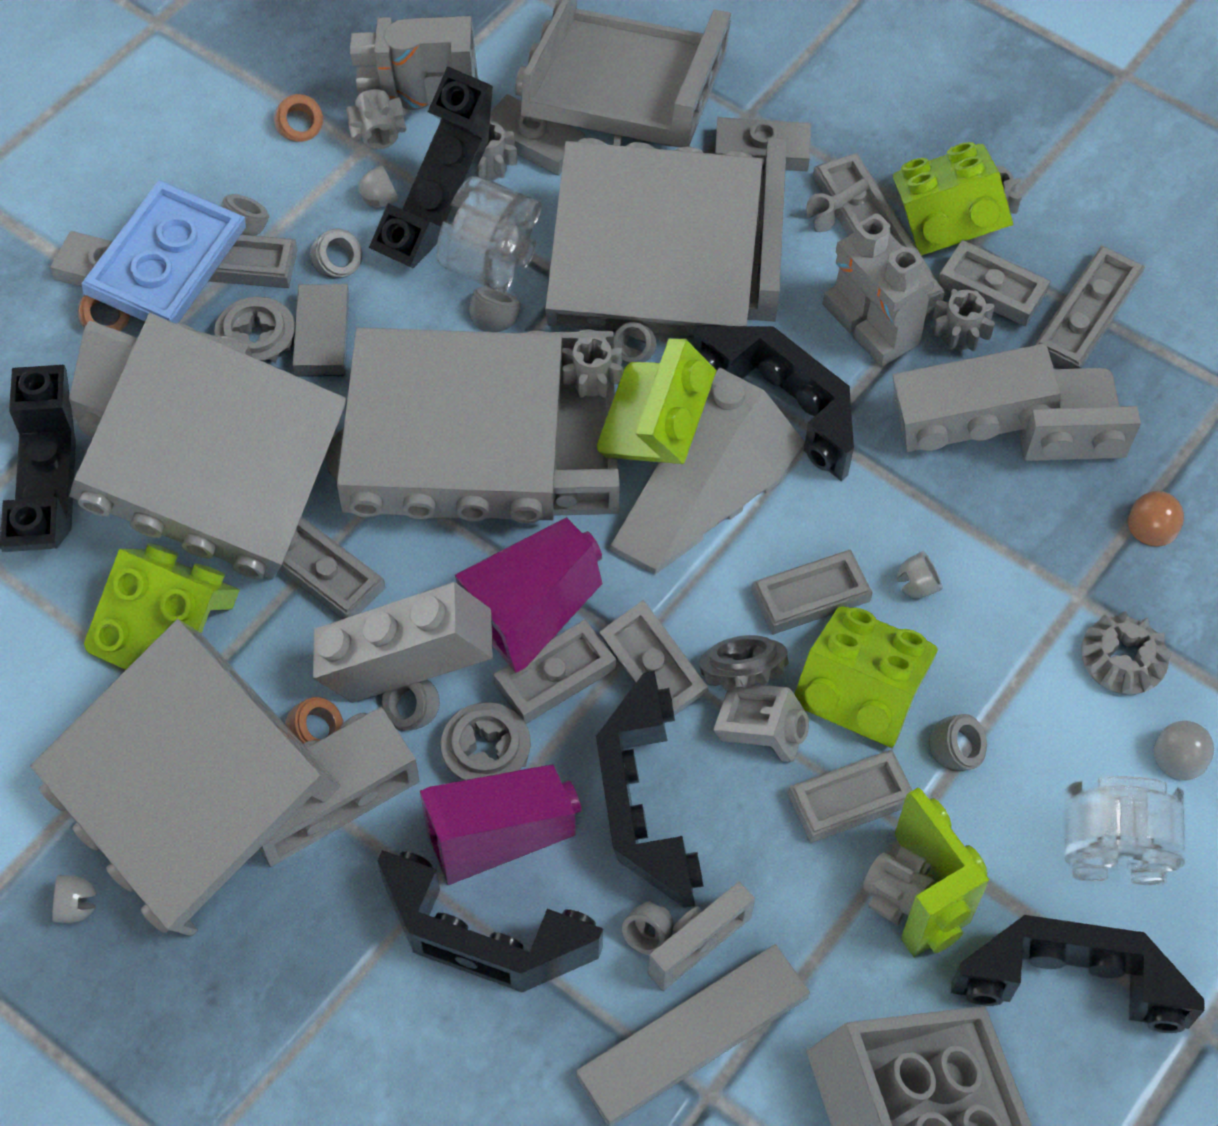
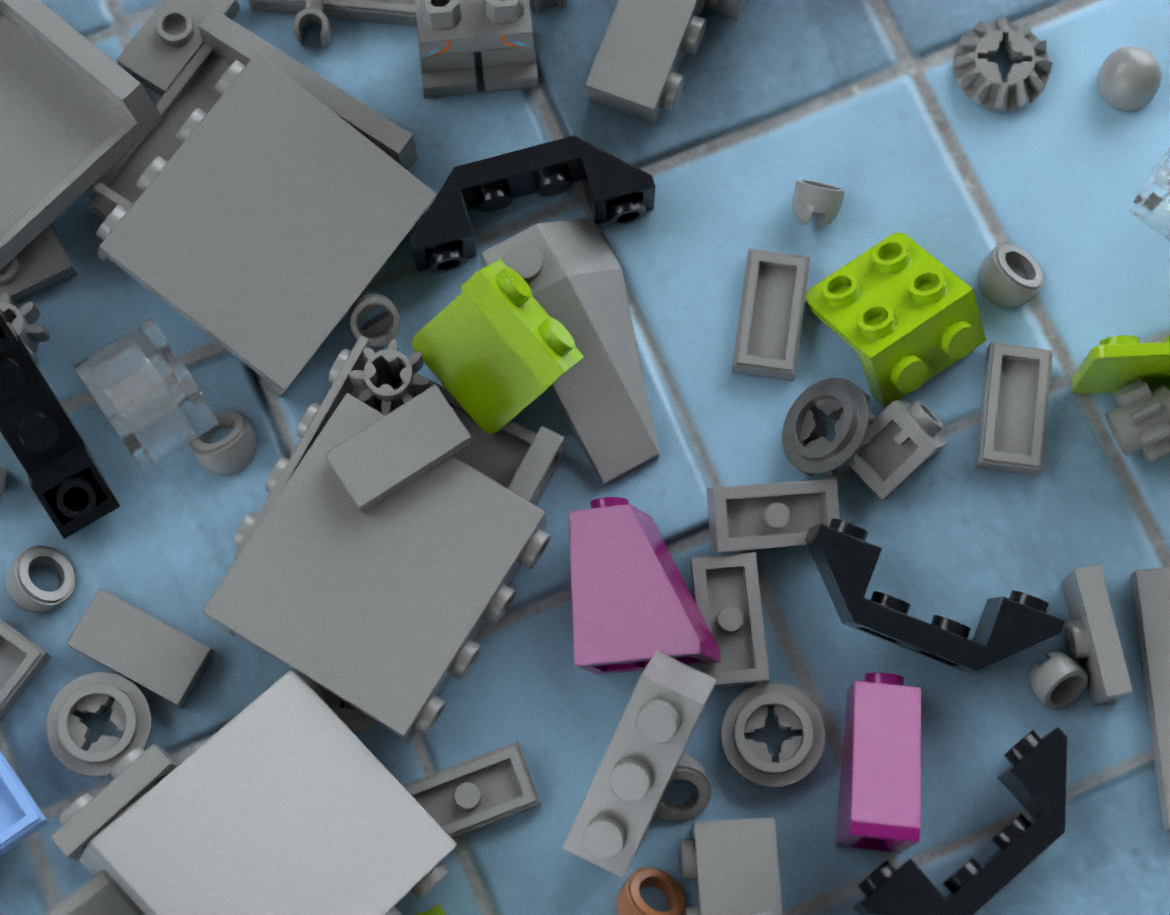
camera: 60 degrees left, 15 degrees up
(539, 378) = (398, 448): none -> light grey tile

